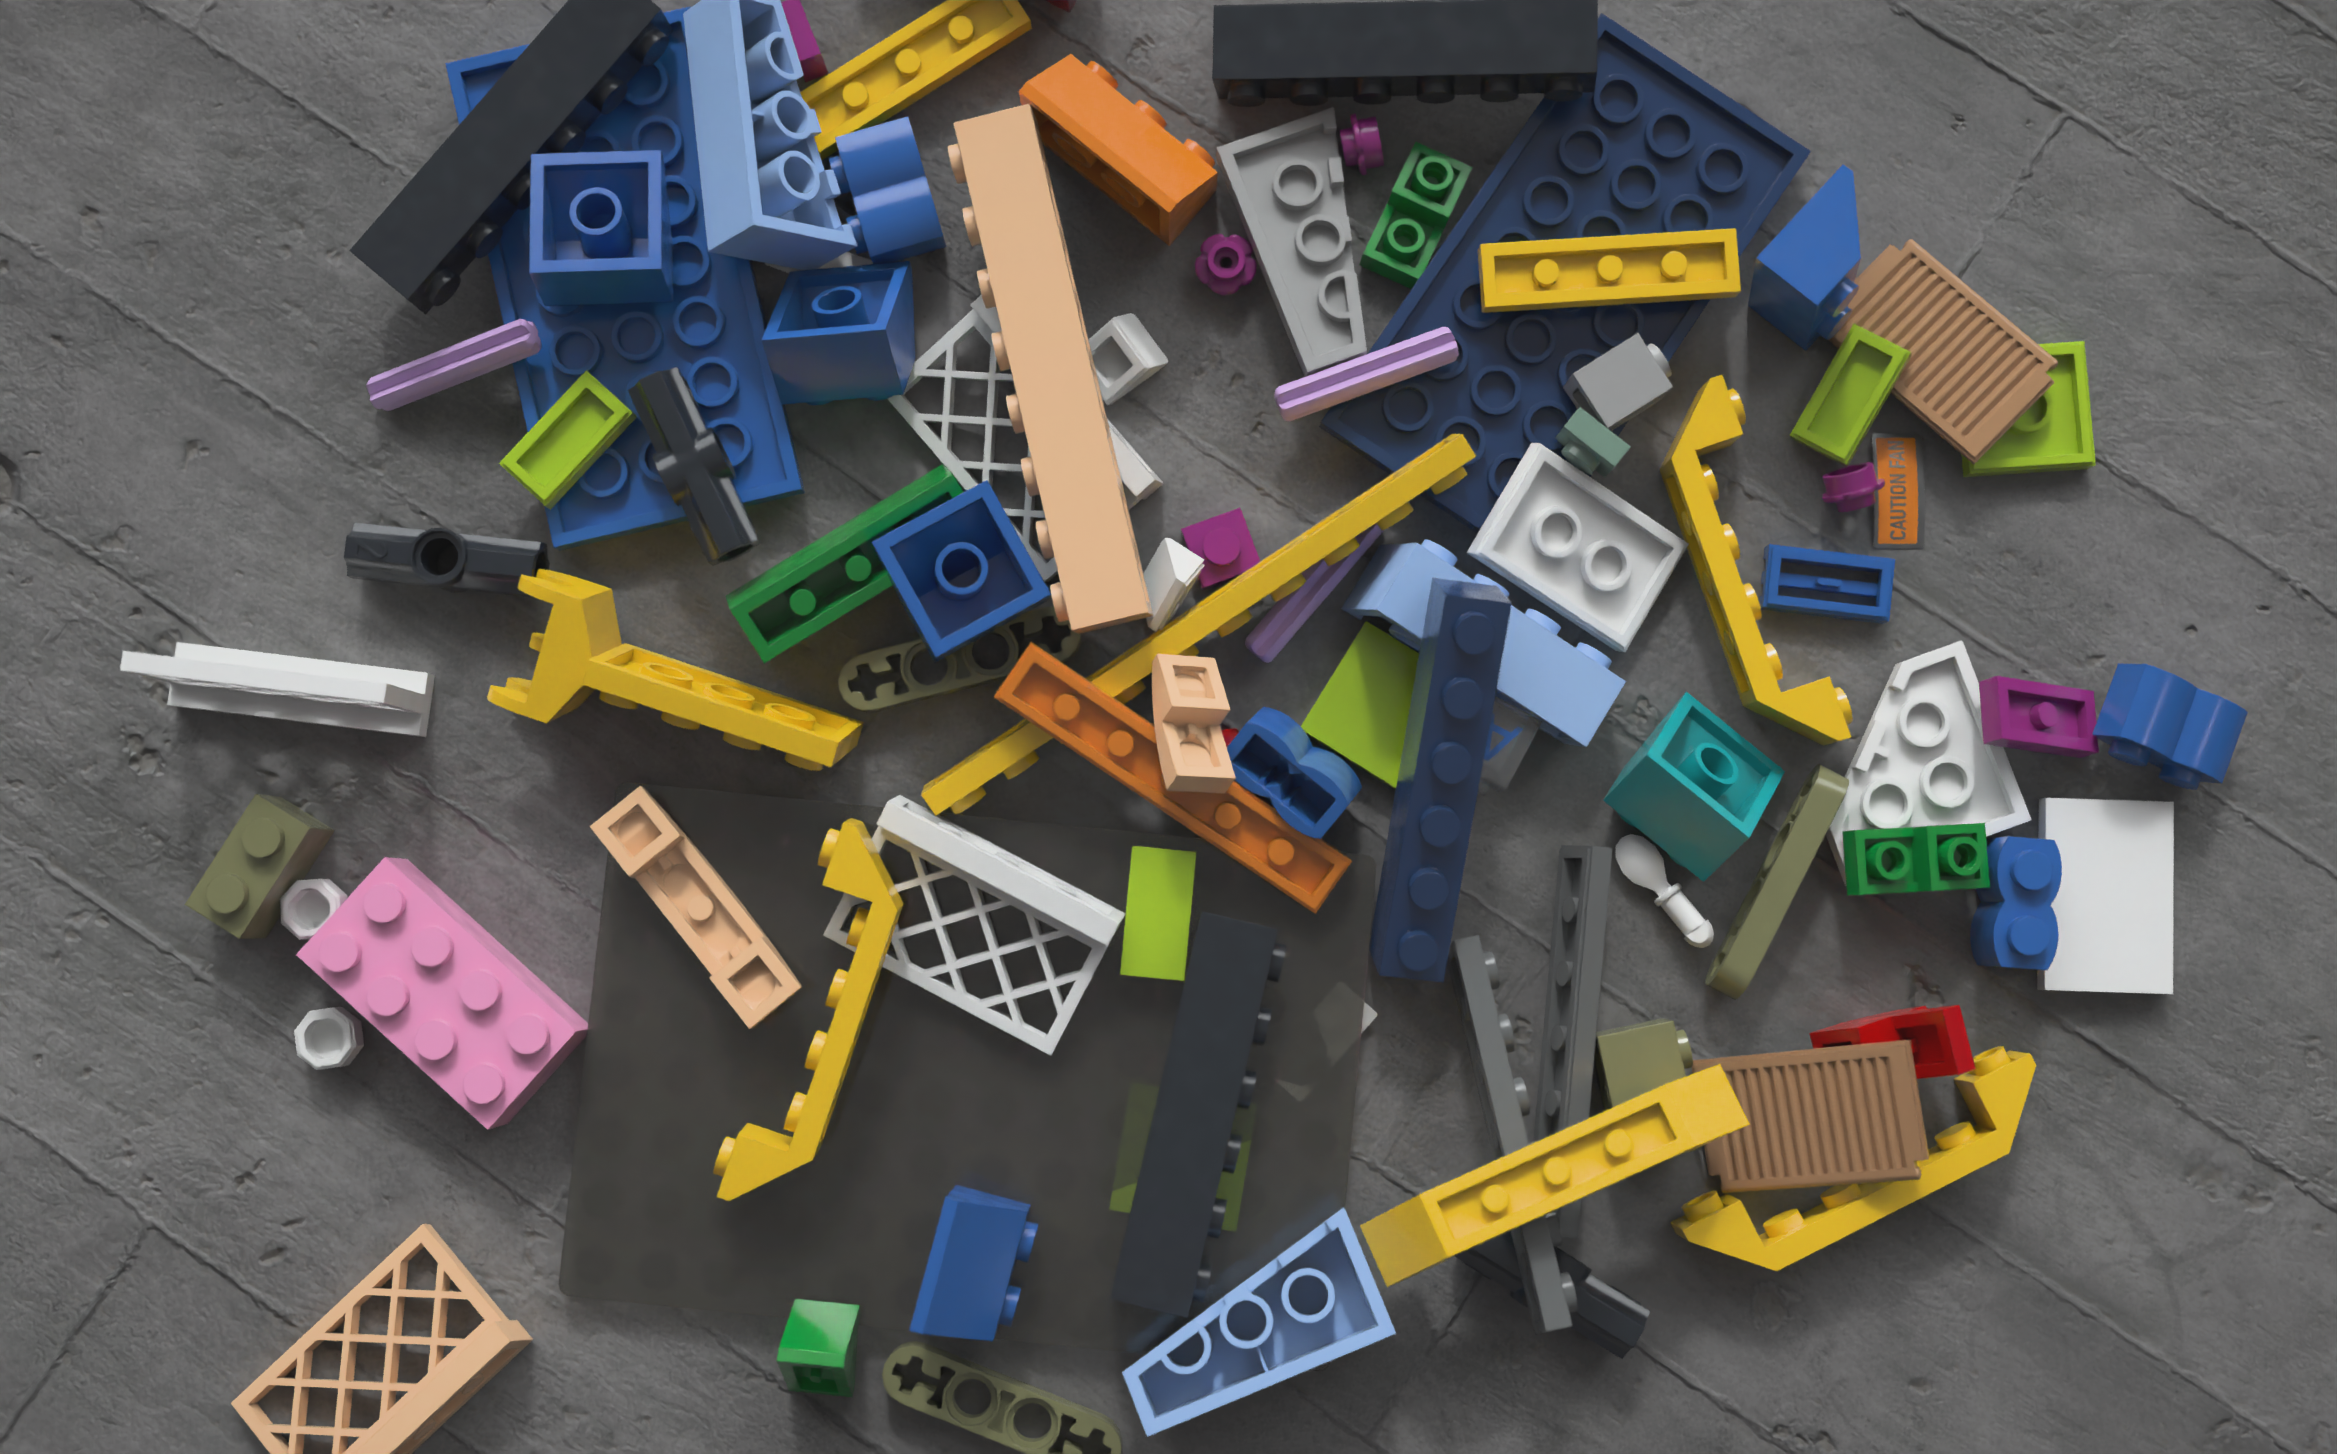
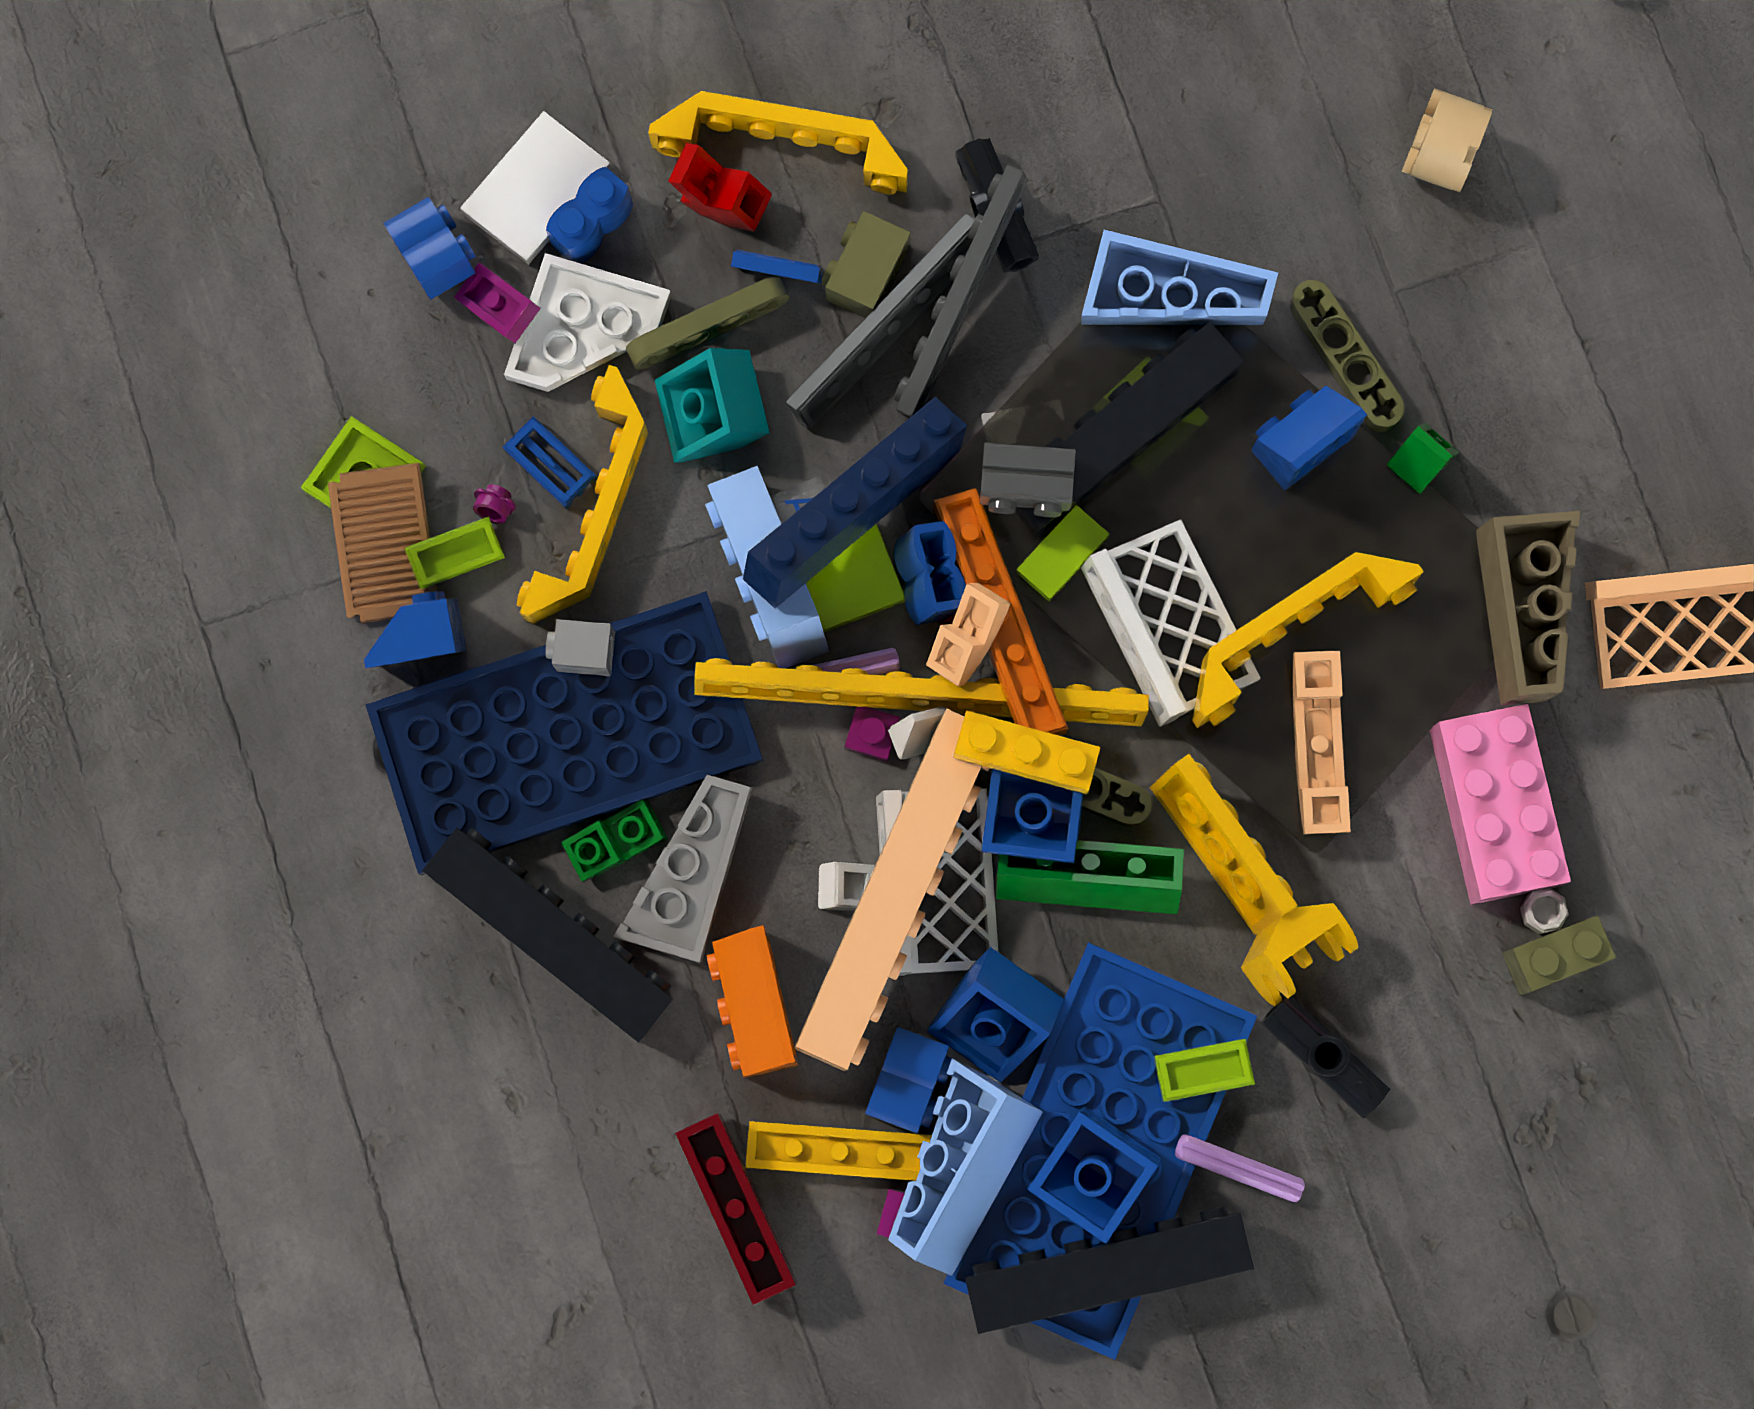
camera: 140 degrees left, 5 degrees down
(291, 688) = (1467, 1049): white fence -> none
(329, 1038) = (1586, 831): white tile -> none
(569, 1254) = (1527, 600): none -> dark tan wedge
(694, 466) = (1141, 995): black piece -> none
(1016, 626) = (1026, 752): none -> yellow plate
(1225, 280) = (733, 899): magenta plate -> none
(1259, 953) = (1027, 479): none -> dark grey brick
(1362, 144) = (613, 903): magenta plate -> none
(1366, 374) = (717, 763): lavender axle -> none
(1553, 1173) = (955, 248): yellow slope -> none
(1577, 547) = (674, 580): white tile -> none
(1590, 444) = (625, 626): sand green plate -> none
(1609, 270) = (535, 717): yellow plate -> none
(1646, 868) = (772, 384): white piece -> none
(1749, 1009) = (777, 266): none -> blue tile
(1821, 1118) = (790, 185): medium nougat window -> none
(1901, 502) = (458, 494): sticker -> none
(1916, 859) = (625, 276): green slope -> none

